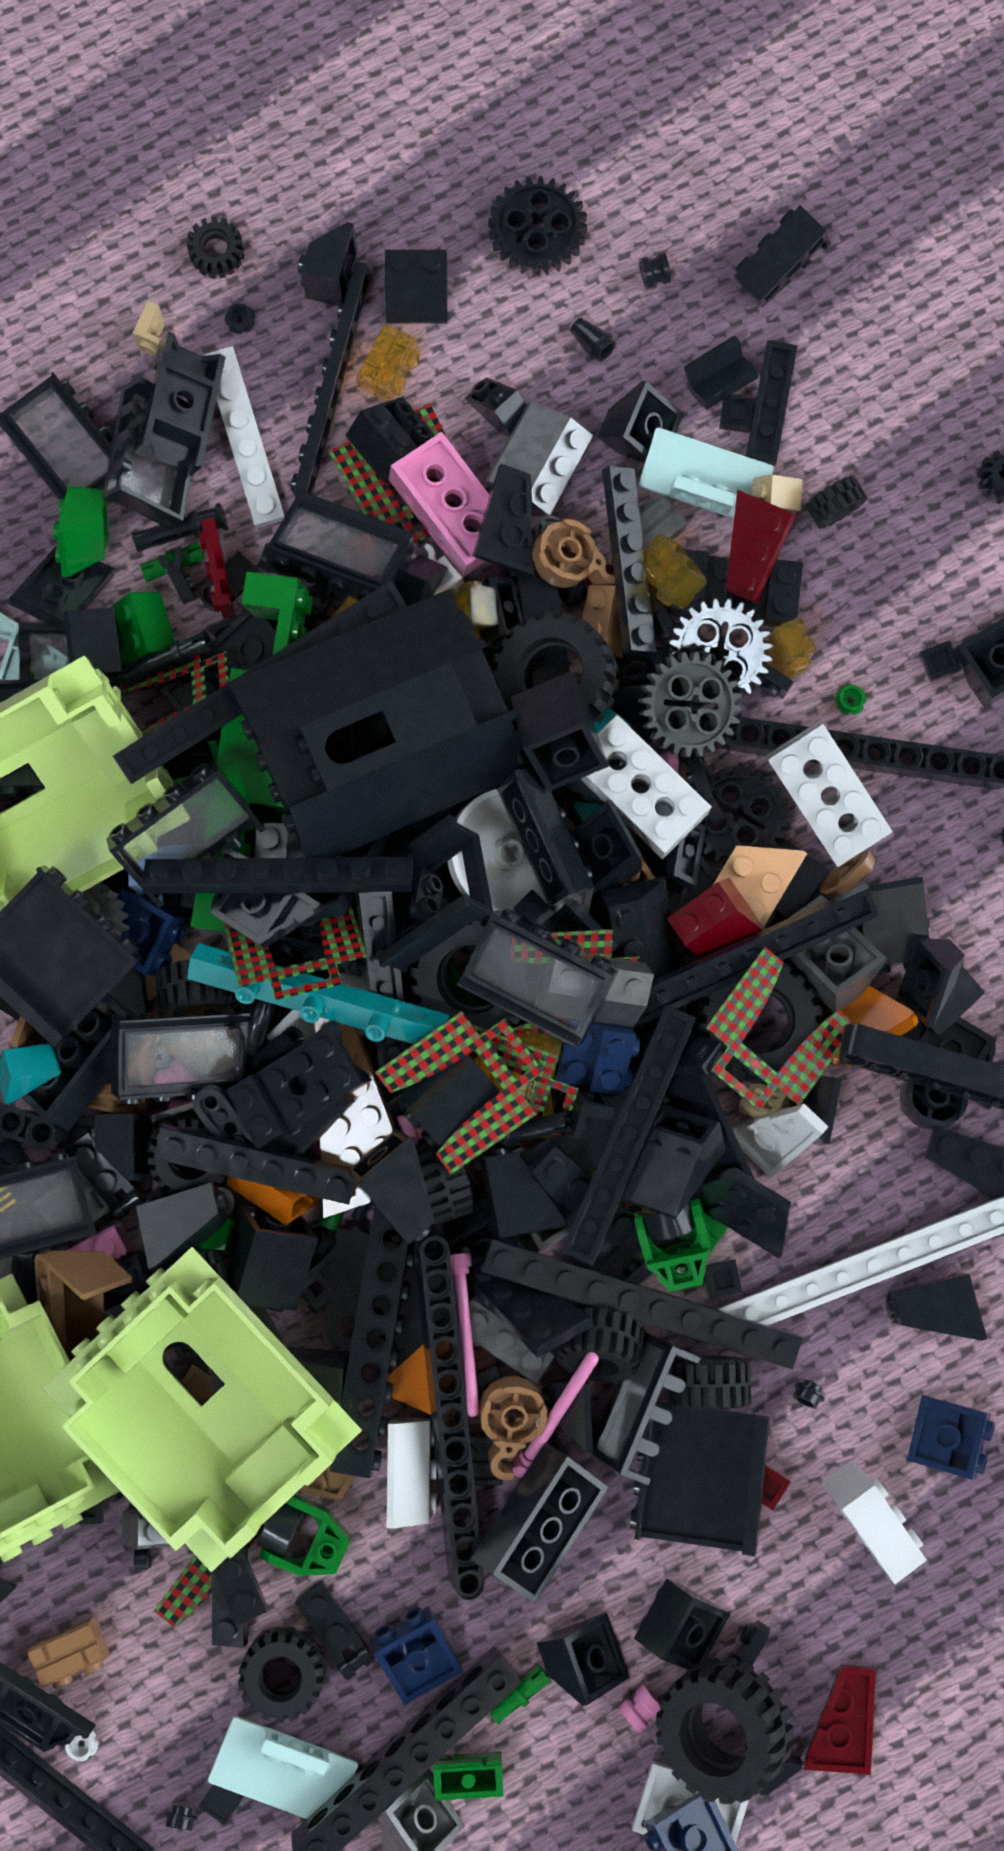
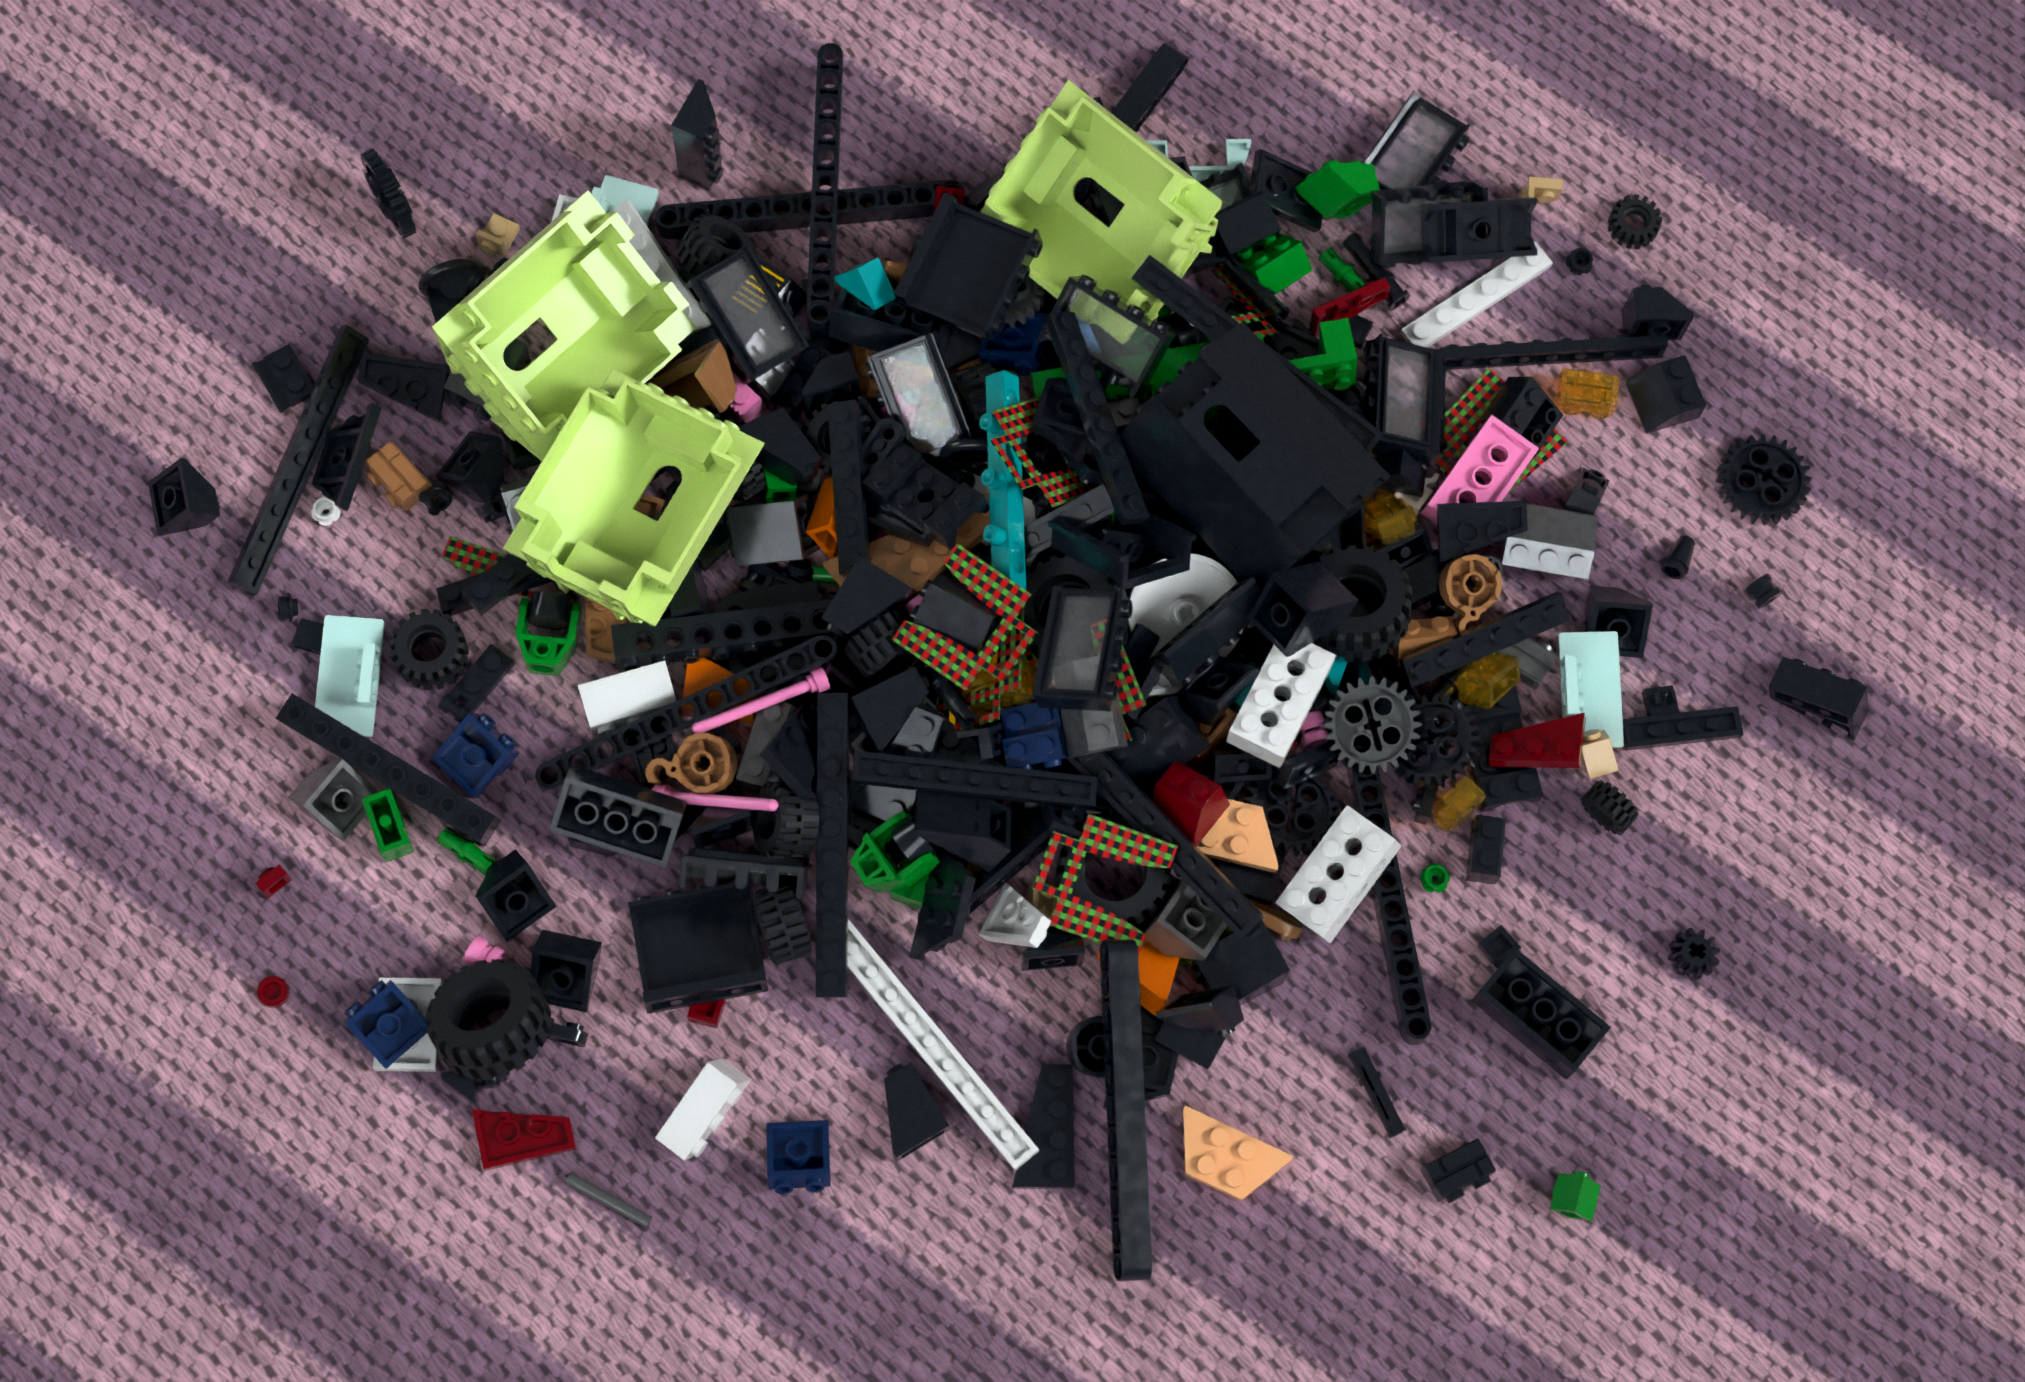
camera: 65 degrees right, 10 degrees down
(85, 1562) = (476, 467): none -> black slope
(115, 1614) = (443, 501): none -> black plate
(183, 584) = (1326, 285): black plate -> none
(719, 373) = (1690, 673): black panel -> none
(722, 1278) = (875, 913): black tile -> none
(808, 1393) = (798, 1021): black plate -> none
(841, 638) = (1485, 849): none -> black brick
(936, 1648) = (608, 1200): none -> dark grey bar

